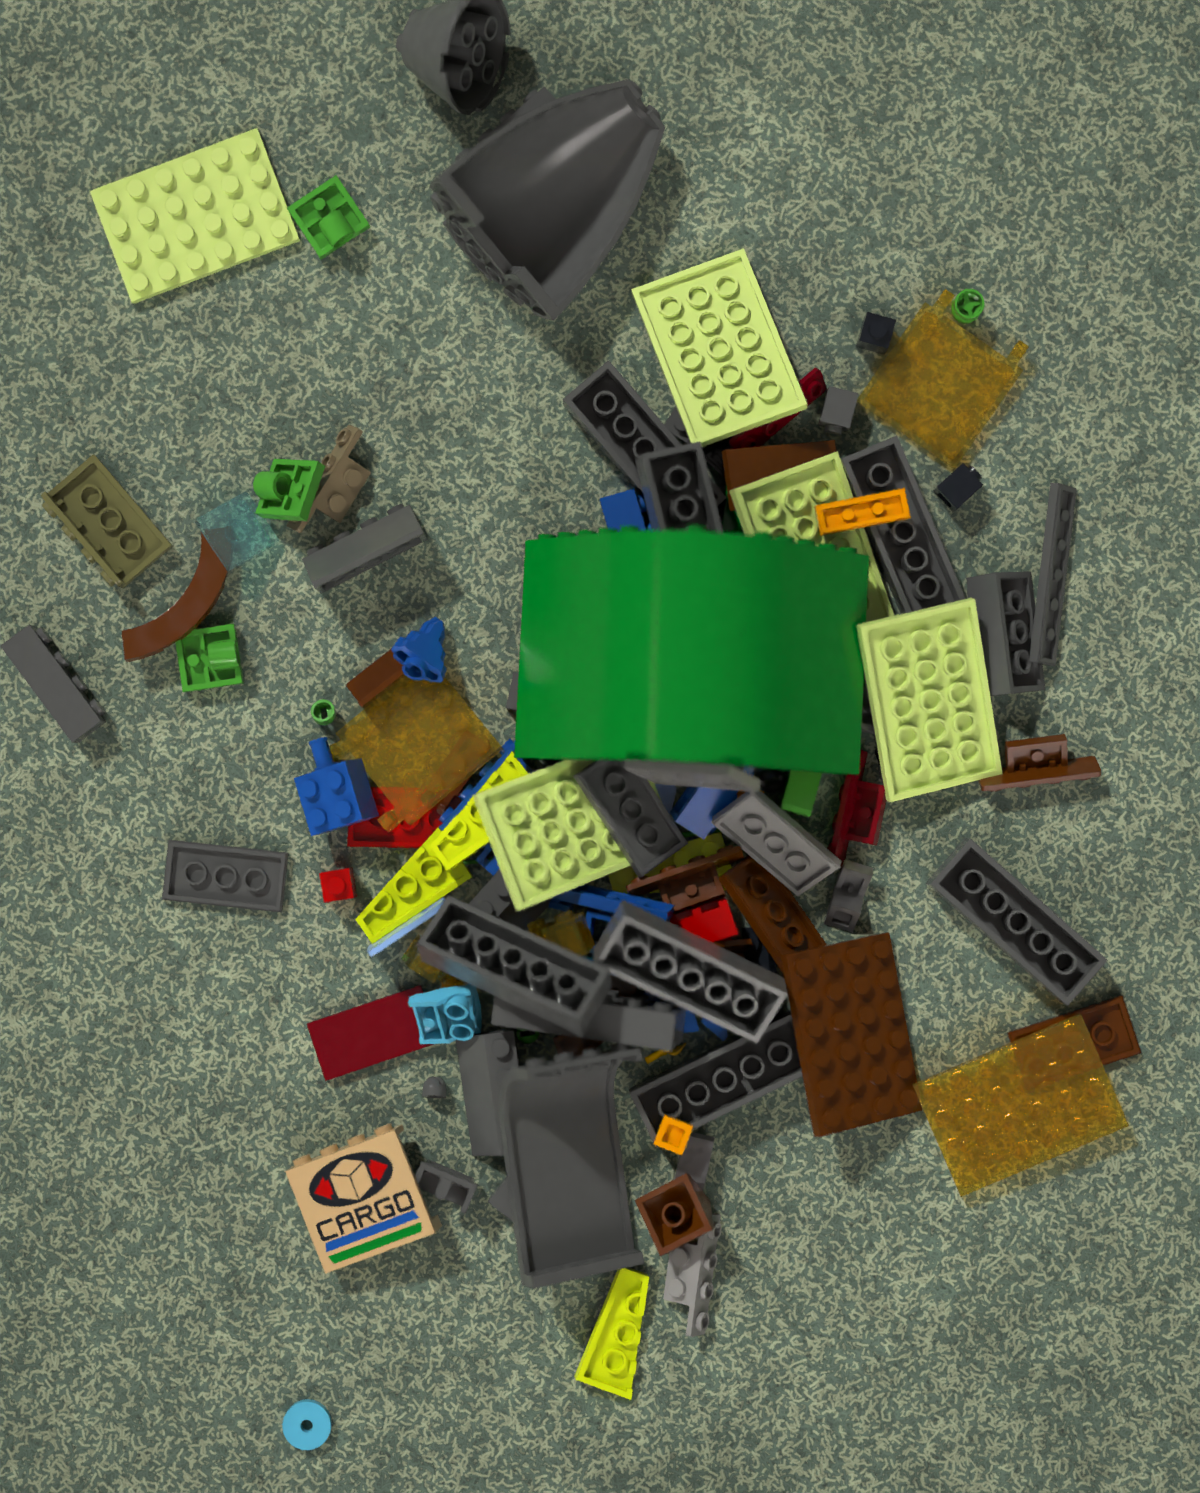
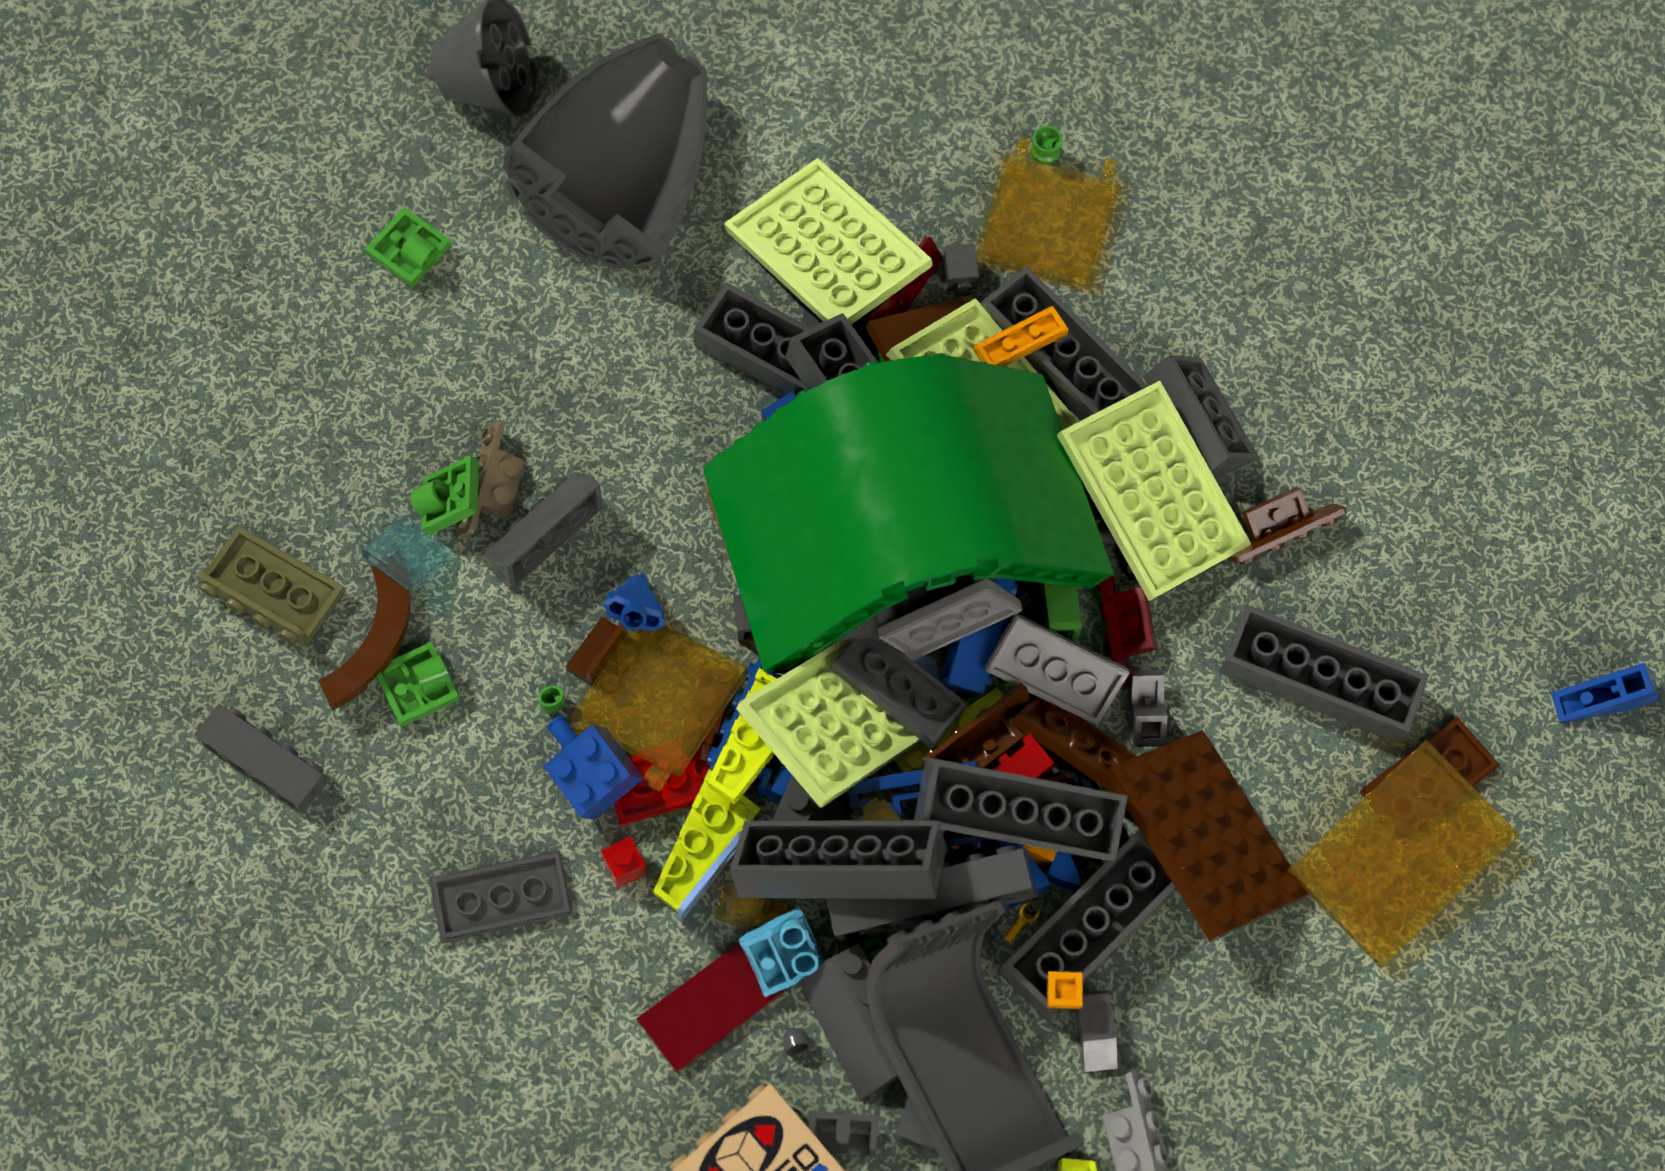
camera: 25 degrees left, 20 degrees down
(194, 216) = (274, 285): yellowish green plate -> none
(676, 1213) = (1096, 1077): reddish brown slope -> none
(875, 333) = (970, 192): black brick -> none
(959, 486) = (1102, 301): black brick -> none
(1052, 574) = (1223, 352): dark grey tile -> none

